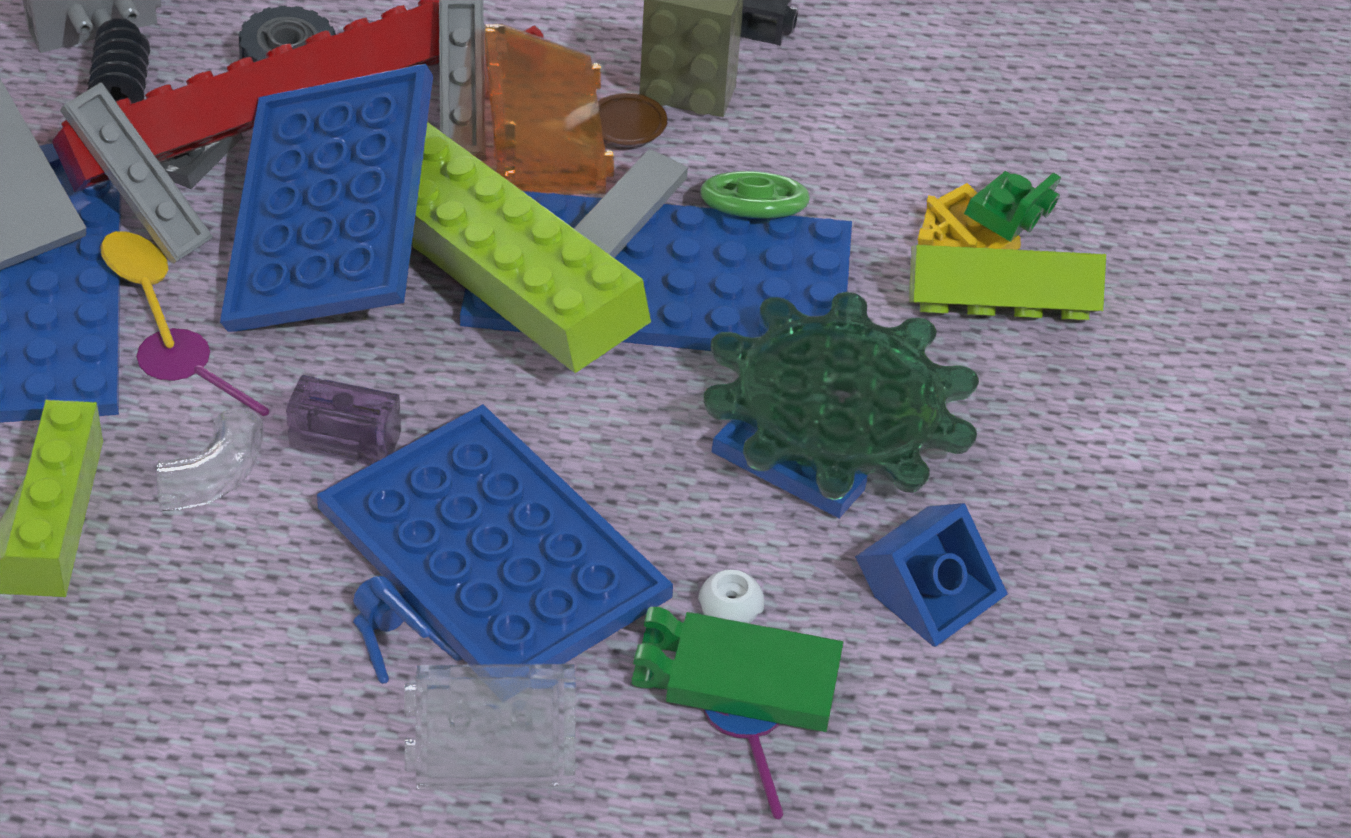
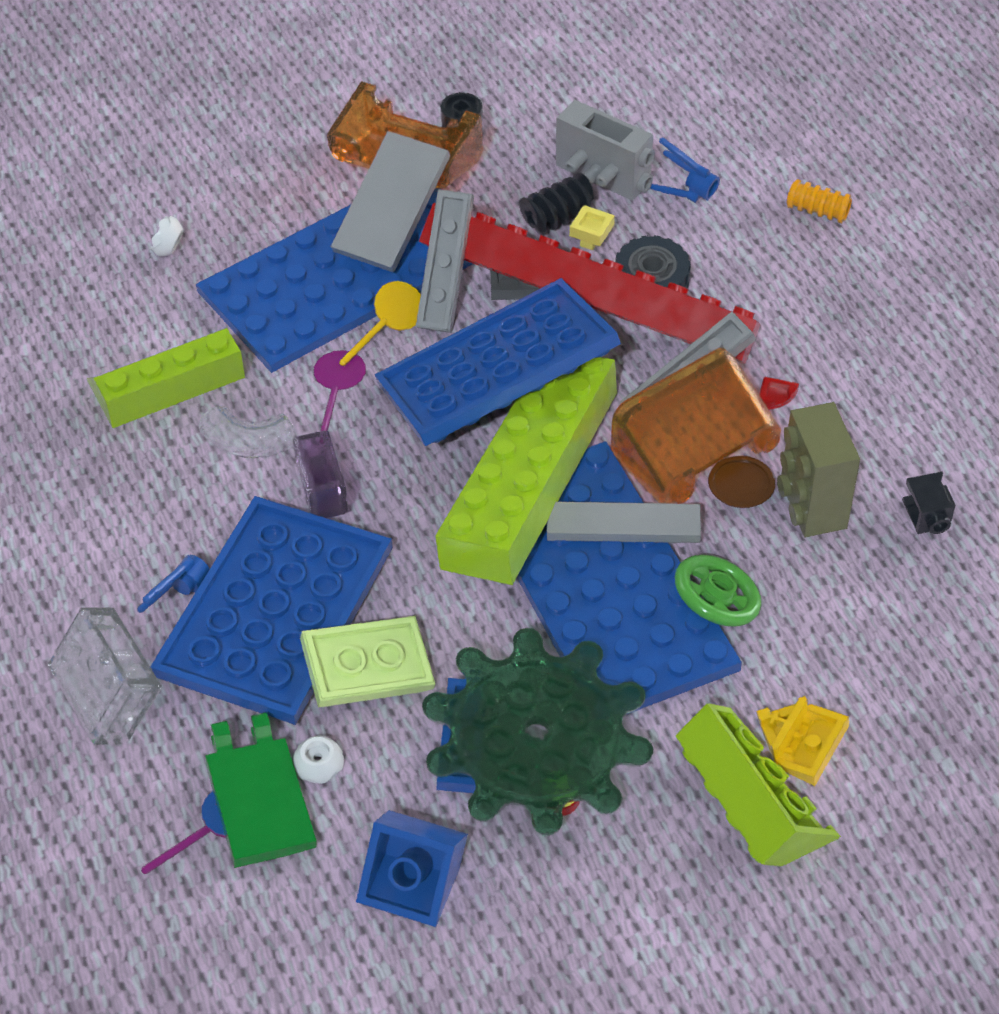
camera: 65 degrees right, 5 degrees up
(180, 57) = (591, 227): none -> light yellow tile
(638, 495) = (367, 661): none -> yellowish green tile
(1012, 204) = (839, 754): green bracket -> none

